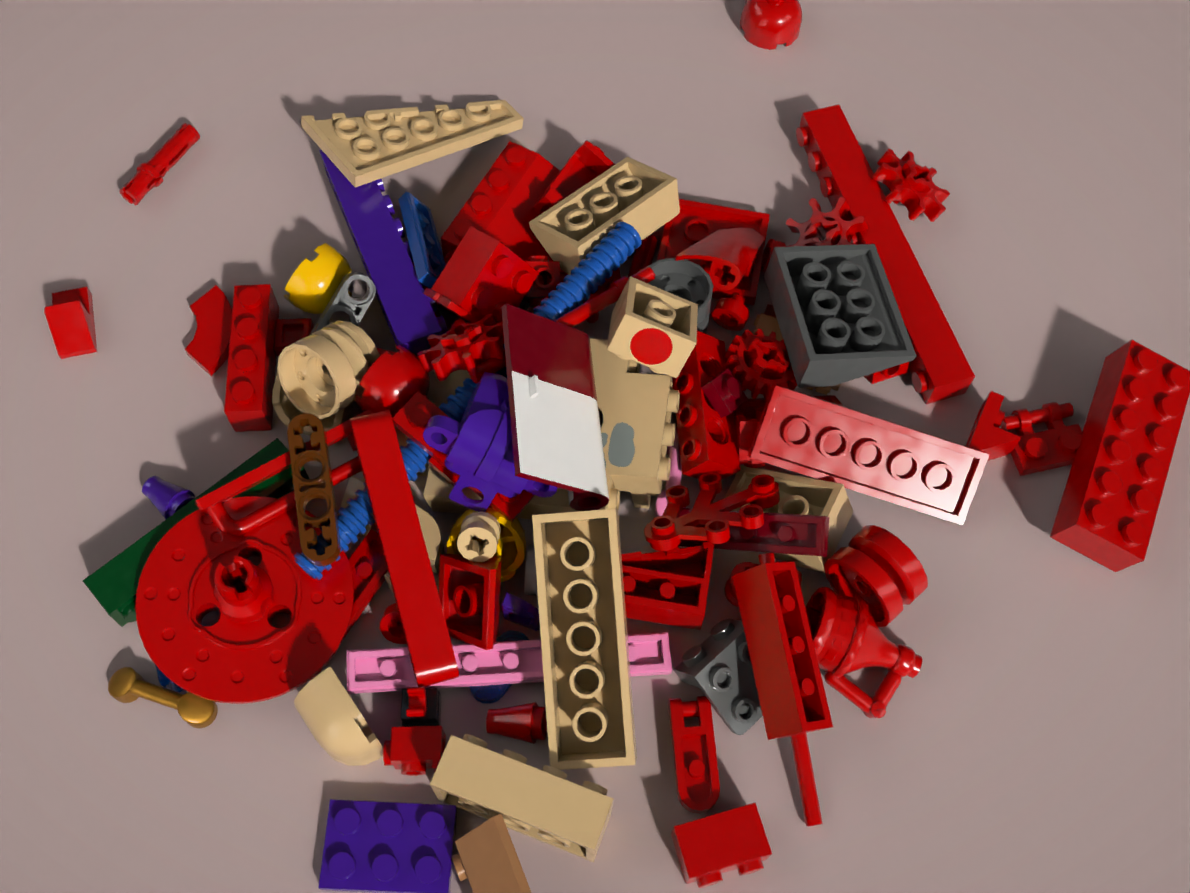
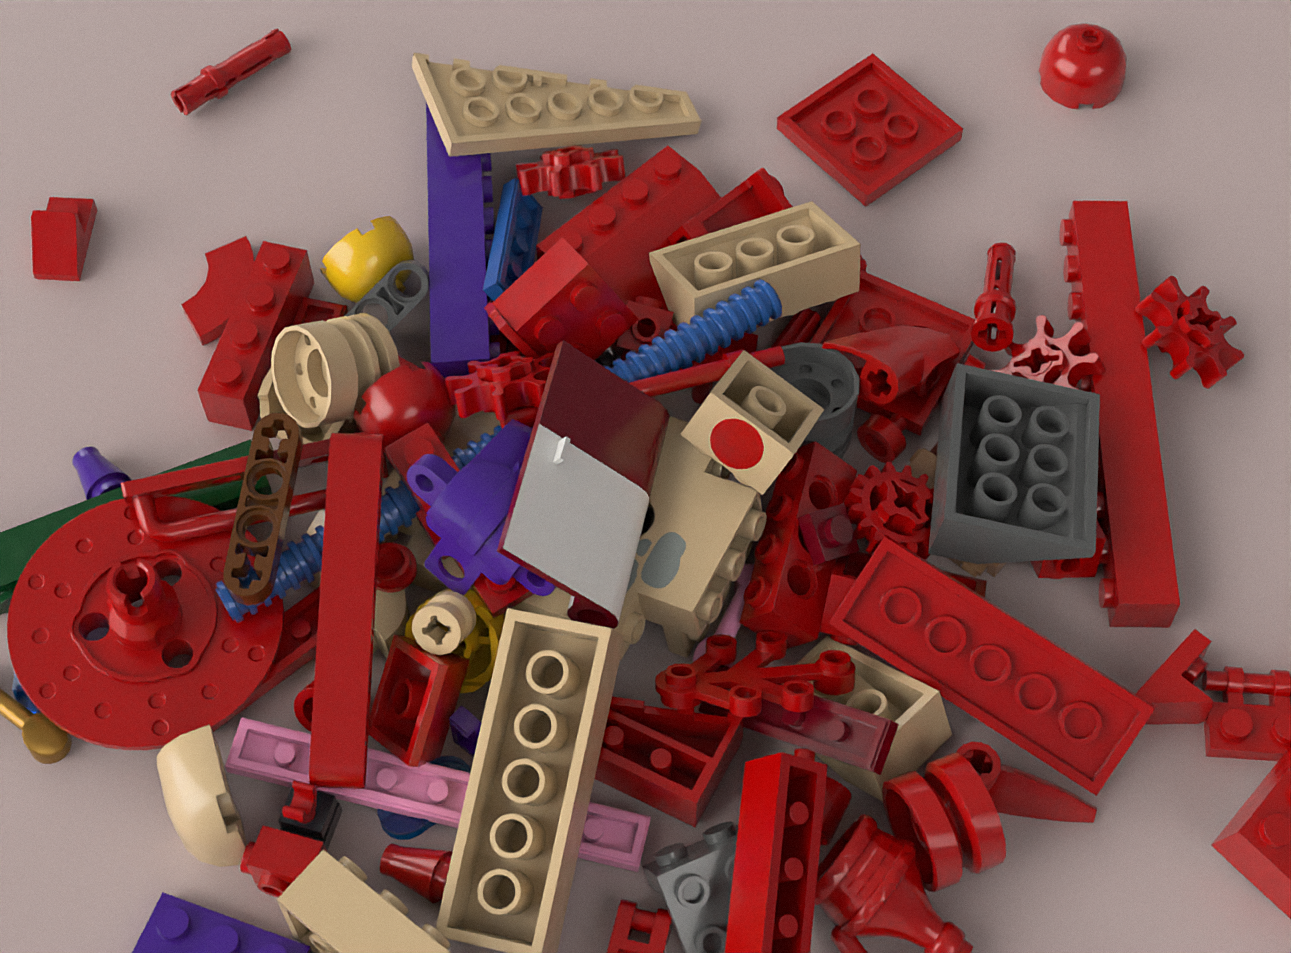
camera: 20 degrees right, 5 degrees down
(426, 504) = (395, 567): none -> red plate
(445, 177) = (570, 171): none -> red gear
(642, 96) = (869, 129): none -> red plate
(776, 199) = (998, 276): none -> red pin
(917, 536) = (1023, 793): none -> red piece

